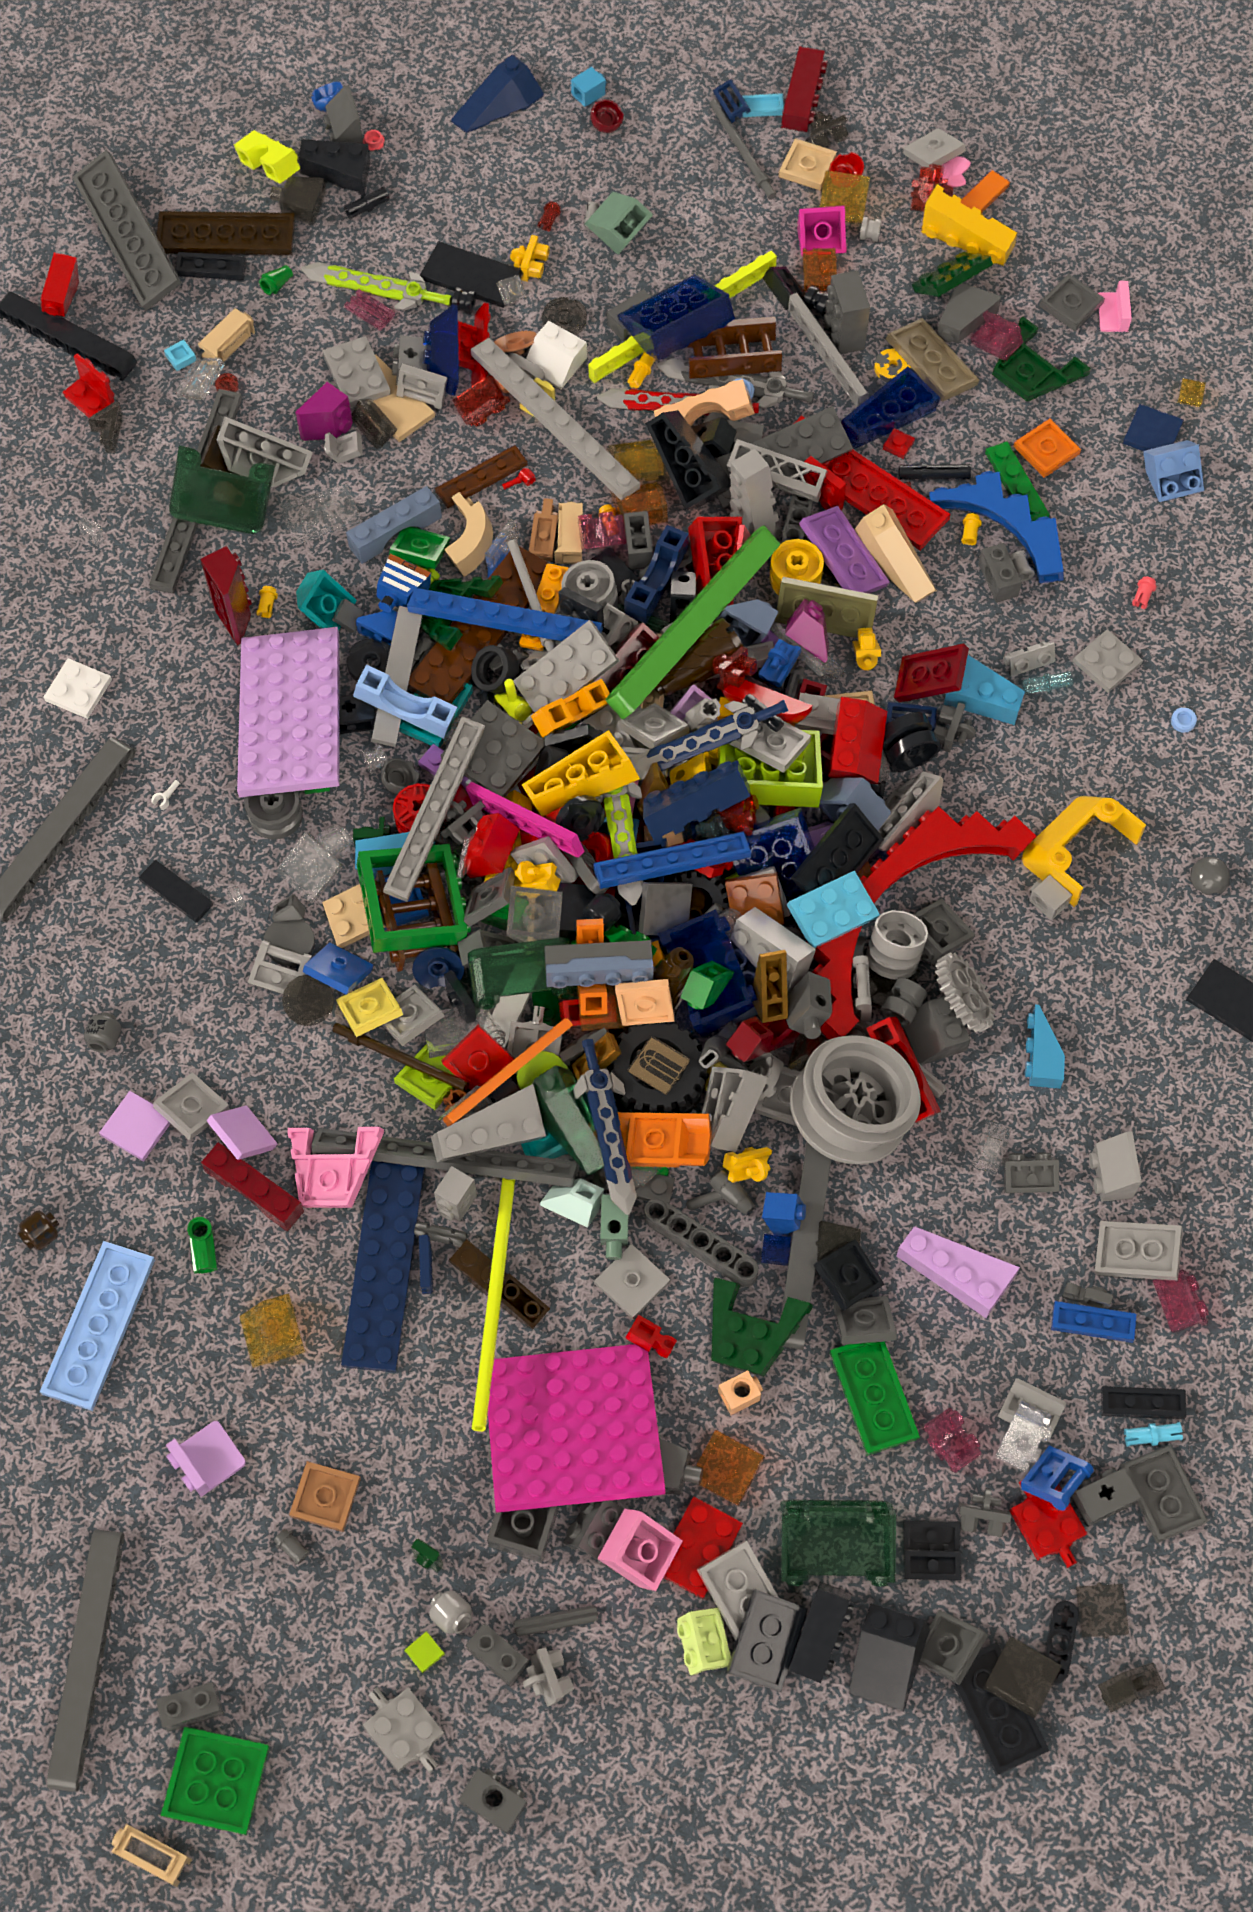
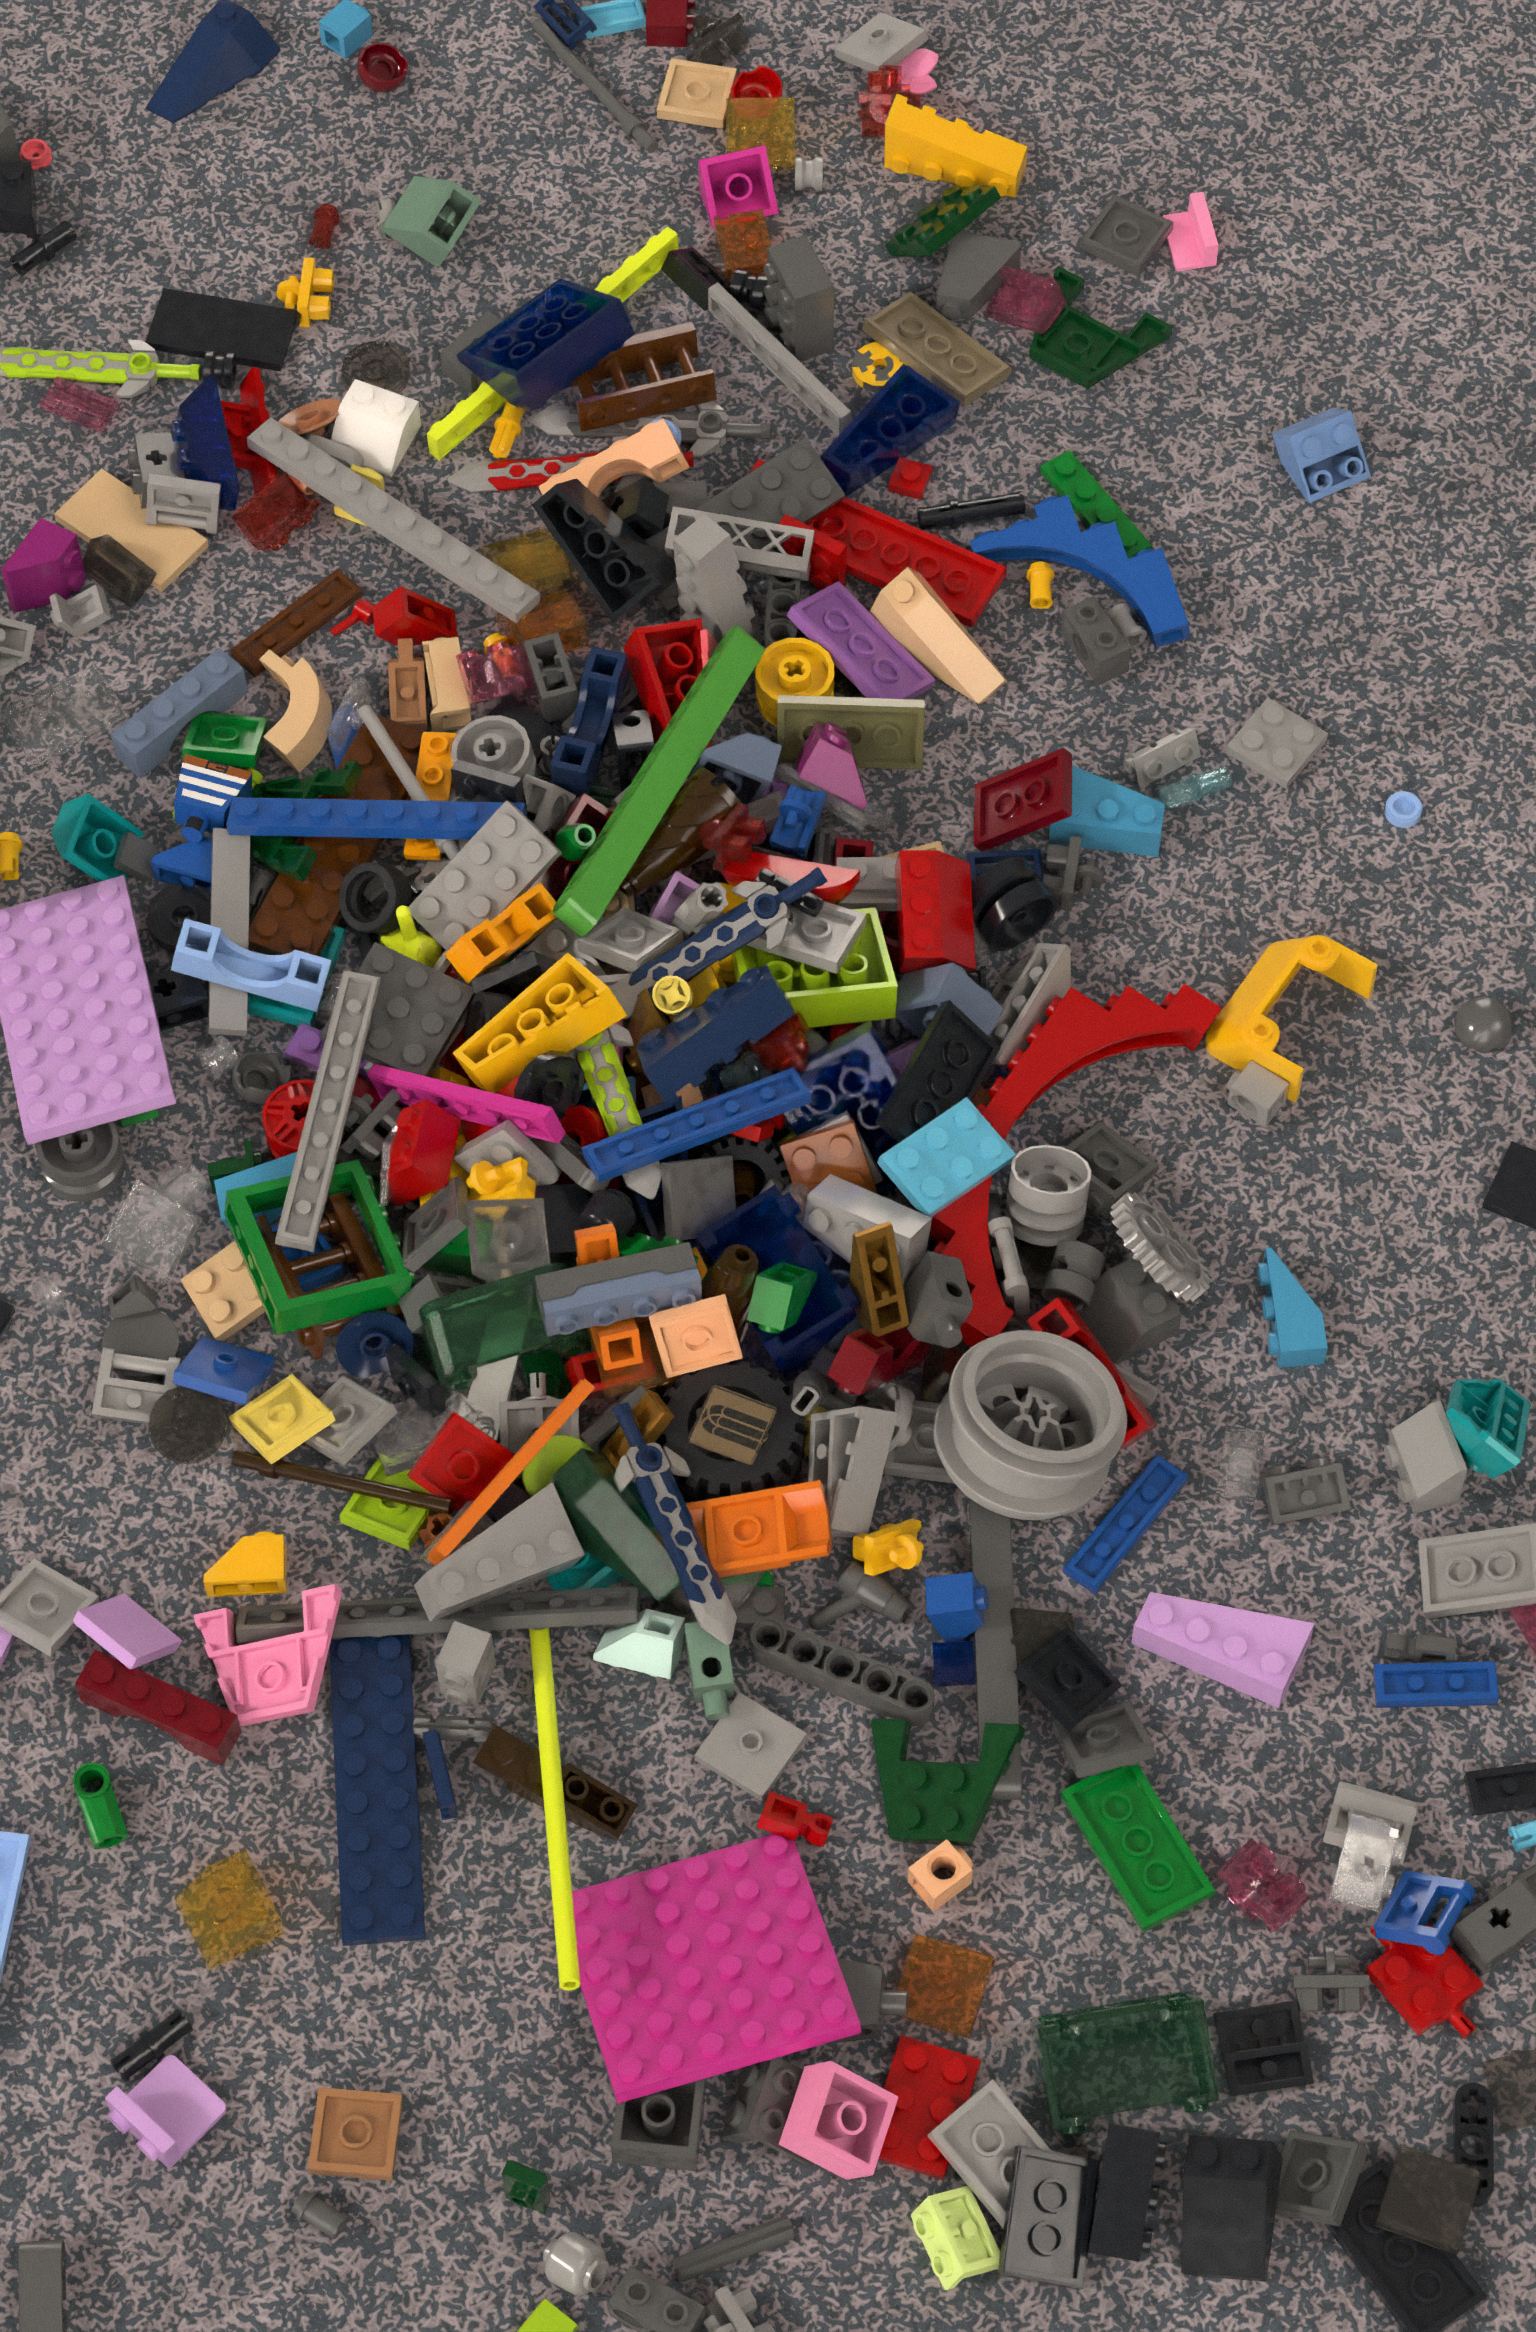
camera: 10 degrees left, 5 degrees down
(205, 1411) = (151, 2045): none -> black pin
(330, 1103) = (250, 1567): none -> yellow slope
(356, 371) = (78, 496): light grey plate -> none
(511, 289) = (289, 342): clear plate -> none
(556, 485) = (412, 616): none -> red slope
(625, 654) = (569, 844): none -> green cone
(669, 771) = (670, 990): none -> light yellow wheel
(866, 649) = (920, 781): yellow hips -> none
(907, 1174) = (1125, 1524): none -> blue tile
(986, 191) = (969, 93): orange tile -> none
(1047, 448) = (1130, 450): orange plate -> none
(1146, 587) = (1313, 628): coral pin -> none
(1152, 429) = (1278, 400): dark blue tile -> none
(1162, 1151) = (1488, 1424): none -> teal wedge
(1191, 392) = (1325, 338): clear yellow plate -> none

